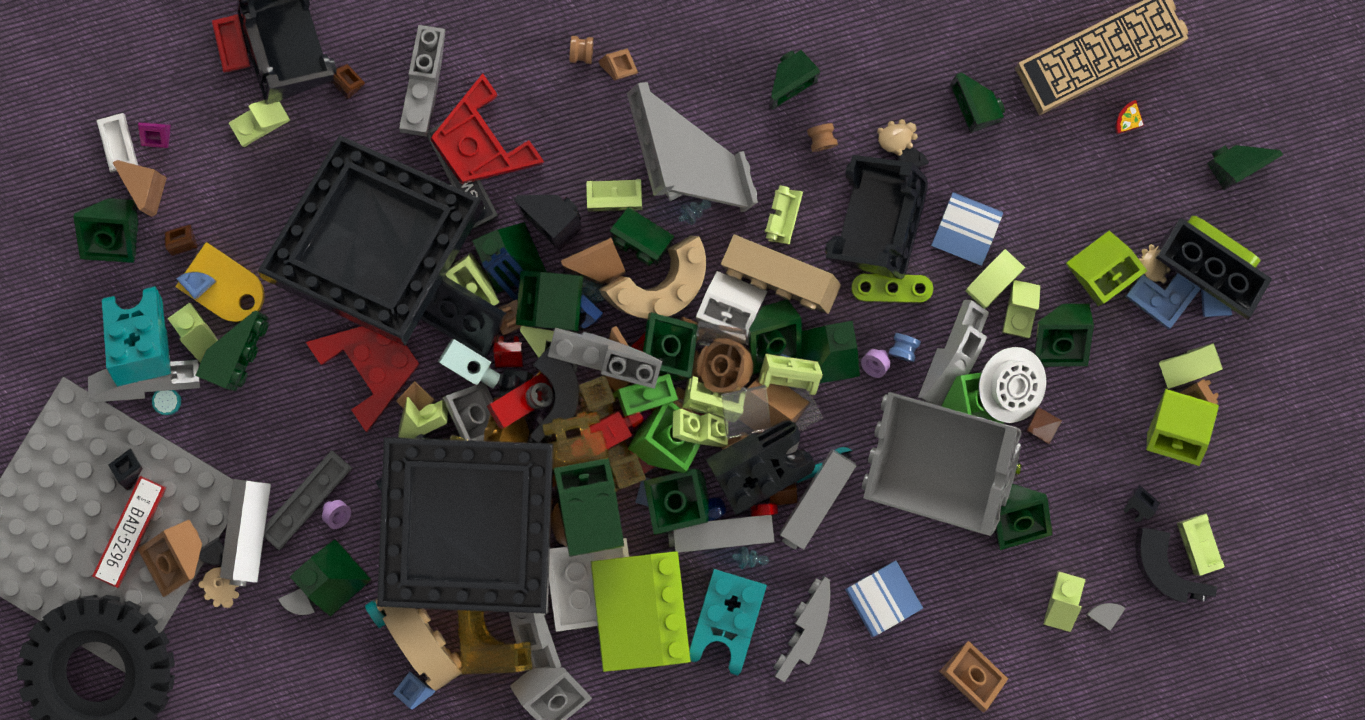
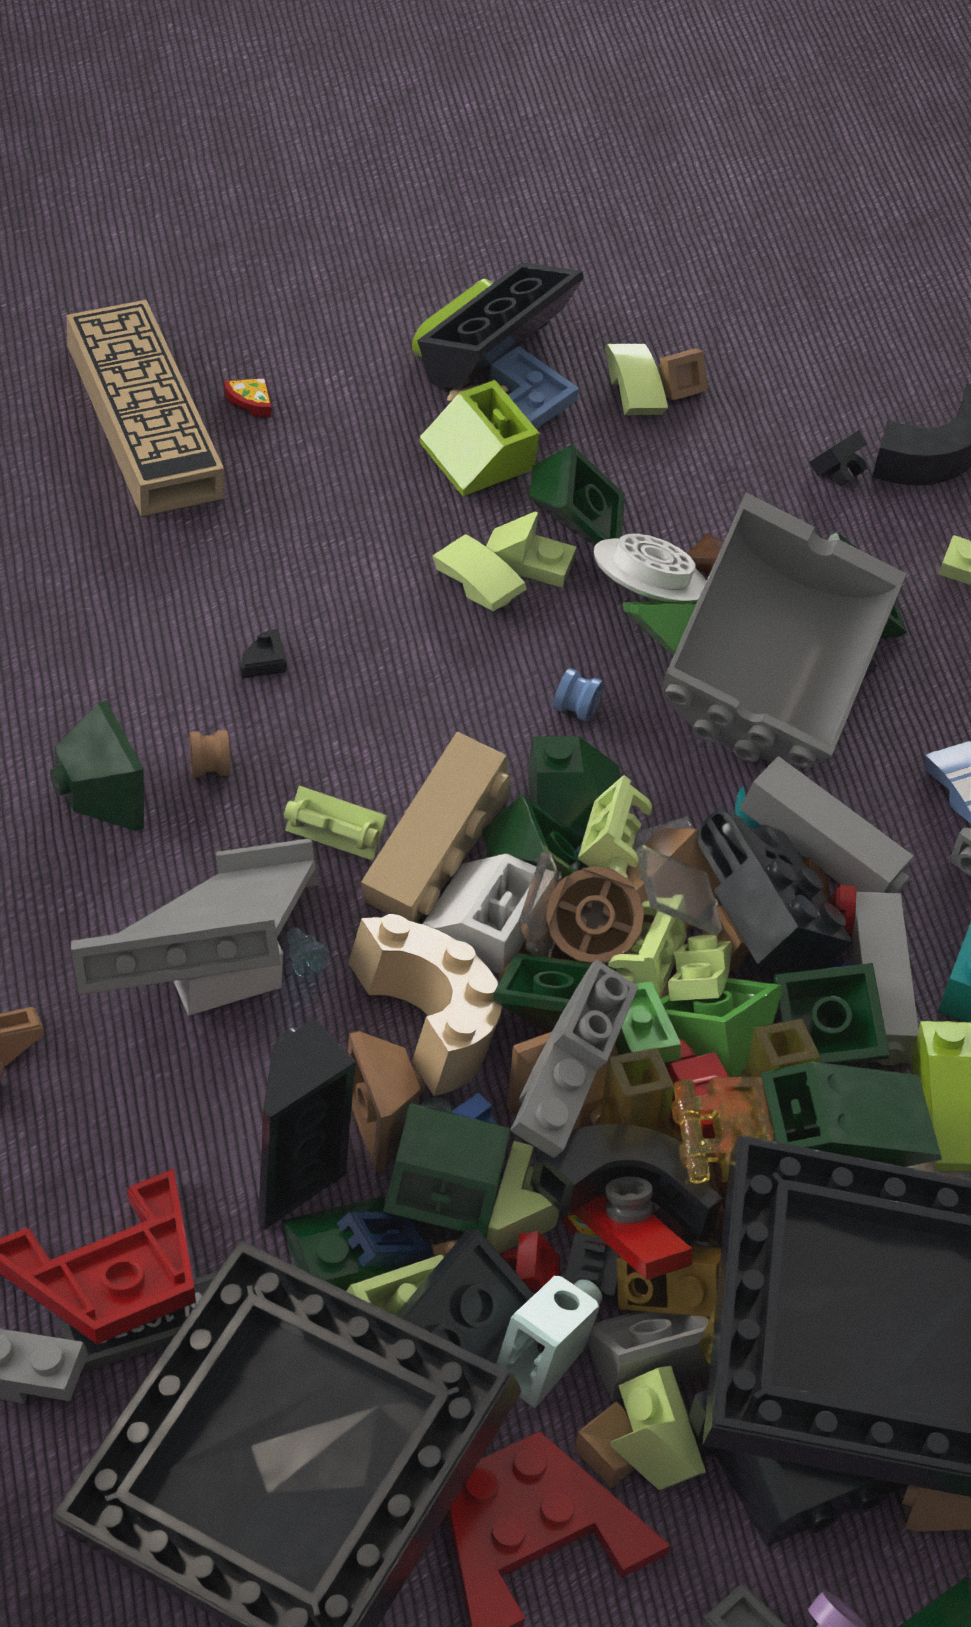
camera: 90 degrees left, 35 degrees down
(614, 195) = (251, 1060): yellowish green hinge -> none
(641, 236) = (358, 1001): dark green slope -> none
(752, 558) = (924, 951): clear light blue hair -> none
(875, 363) = (602, 731): lavender tile -> none
(880, 216) = (356, 692): black windscreen -> none
(880, 293) = (478, 696): lime plate -> none
(897, 136) = (225, 664): tan piece -> none
(959, 353) = (610, 631): light grey slope -> none
(967, 228) = (392, 596): slope -> none
(976, 103) = (192, 554): dark green slope -> none
(1182, 427) = (732, 387): lime slope -> none
(1200, 545) = (918, 410): yellowish green hinge -> none
(1212, 307) = (547, 345): medium blue tile -> none
(1239, 162) = (347, 276): dark green slope -> none

